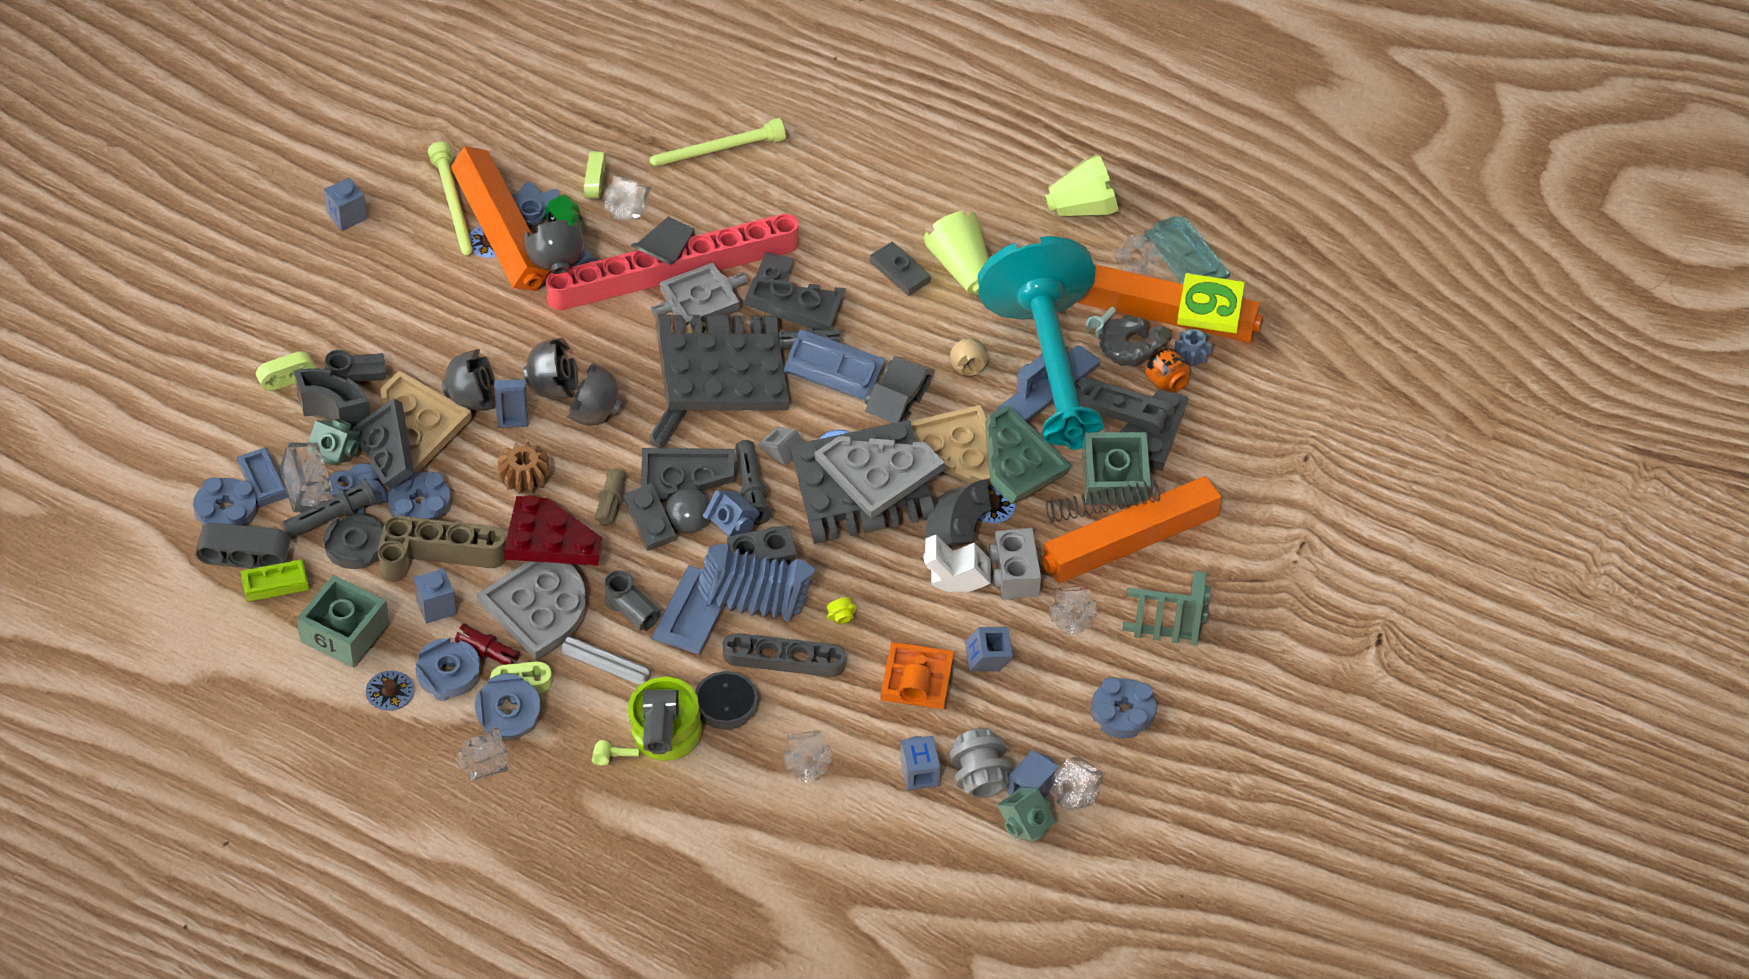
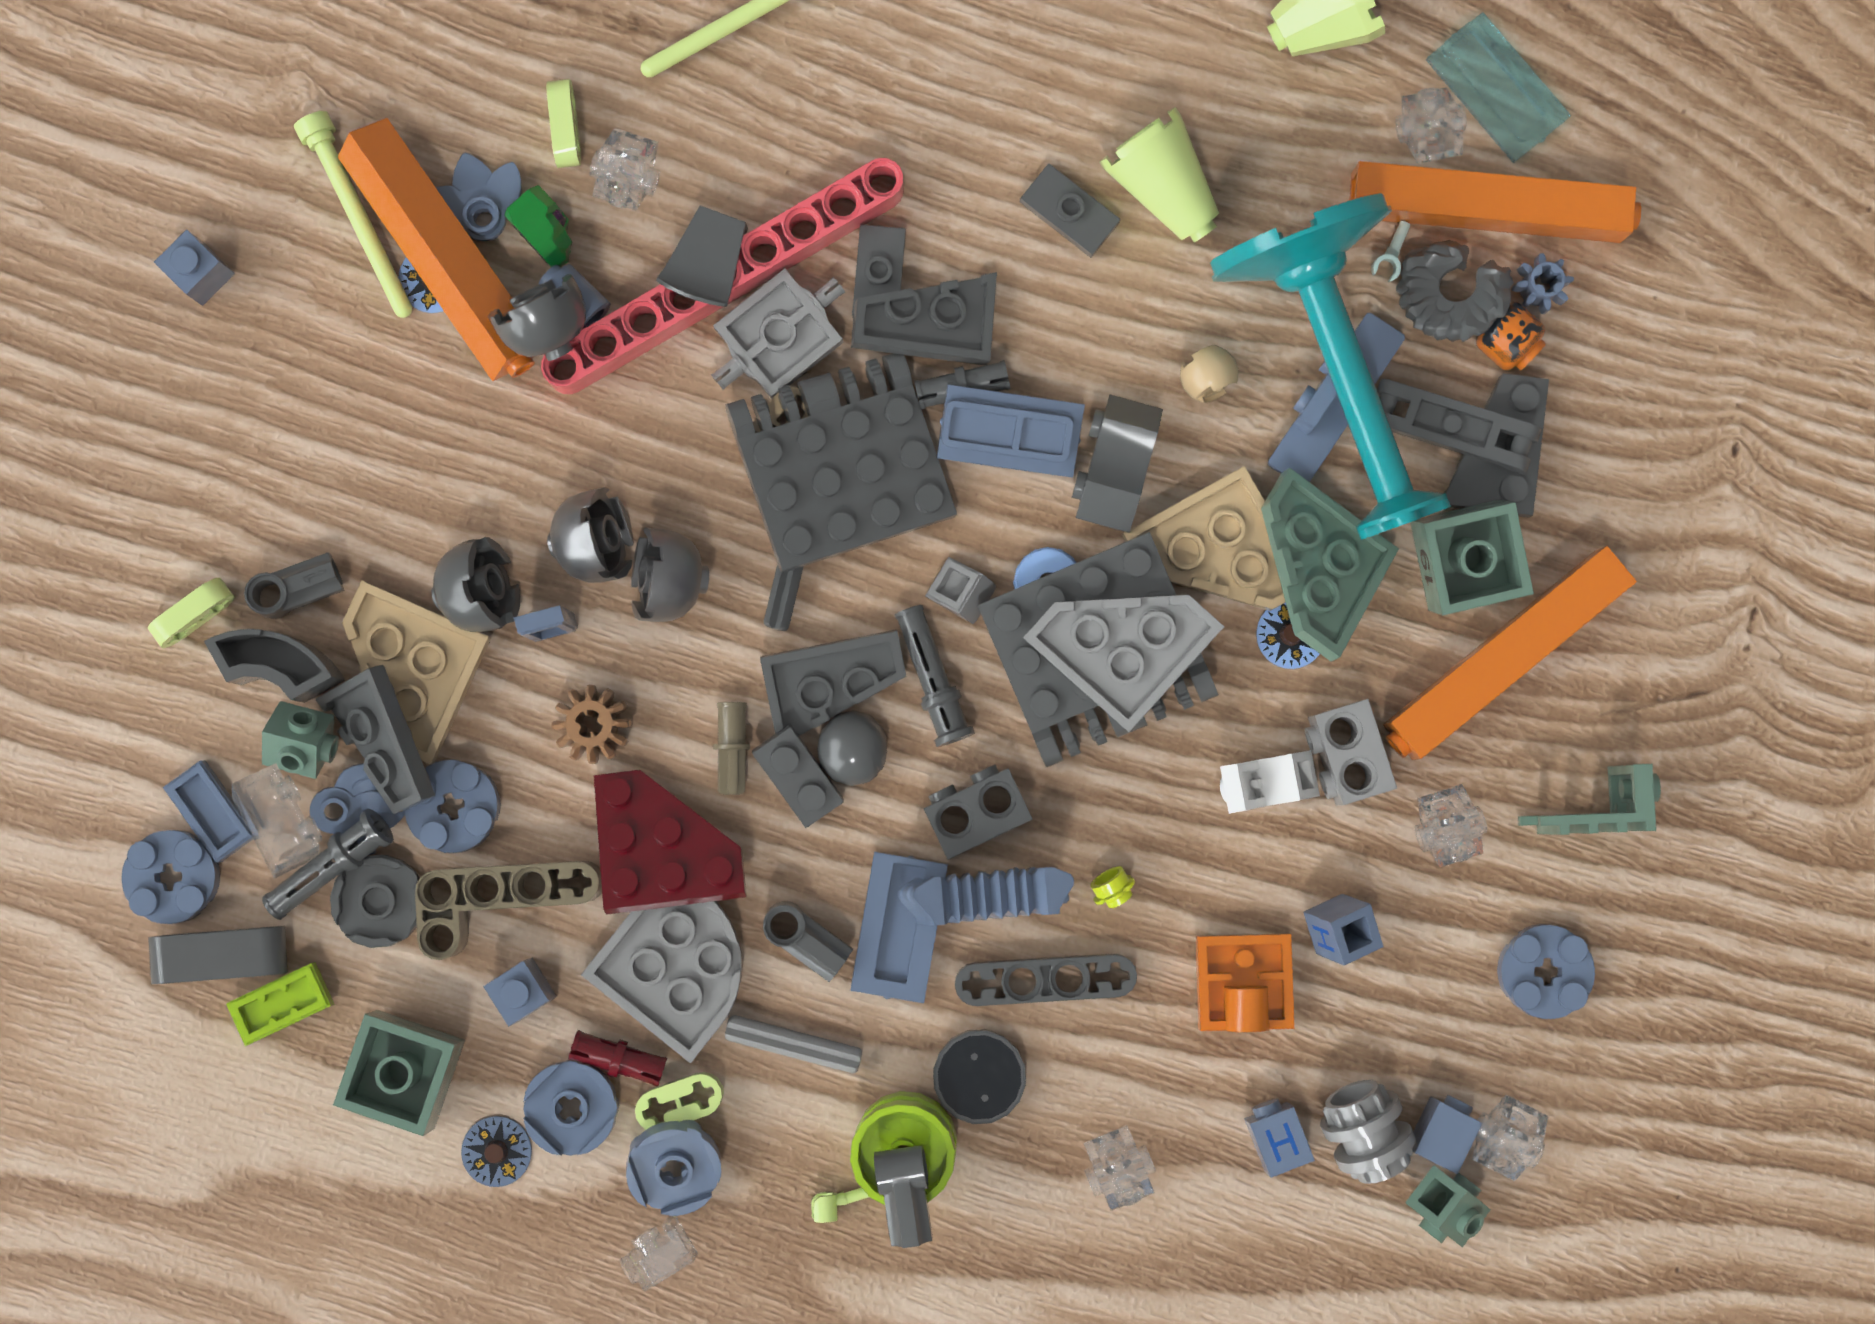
camera: 10 degrees left, 35 degrees up
(731, 512) = (921, 758): sand blue brick -> none
(957, 513) = (1252, 694): dark grey brick -> none
(1099, 500) = (1482, 626): dark grey piece -> none
(1210, 303) = (1565, 211): neon yellow tile -> none

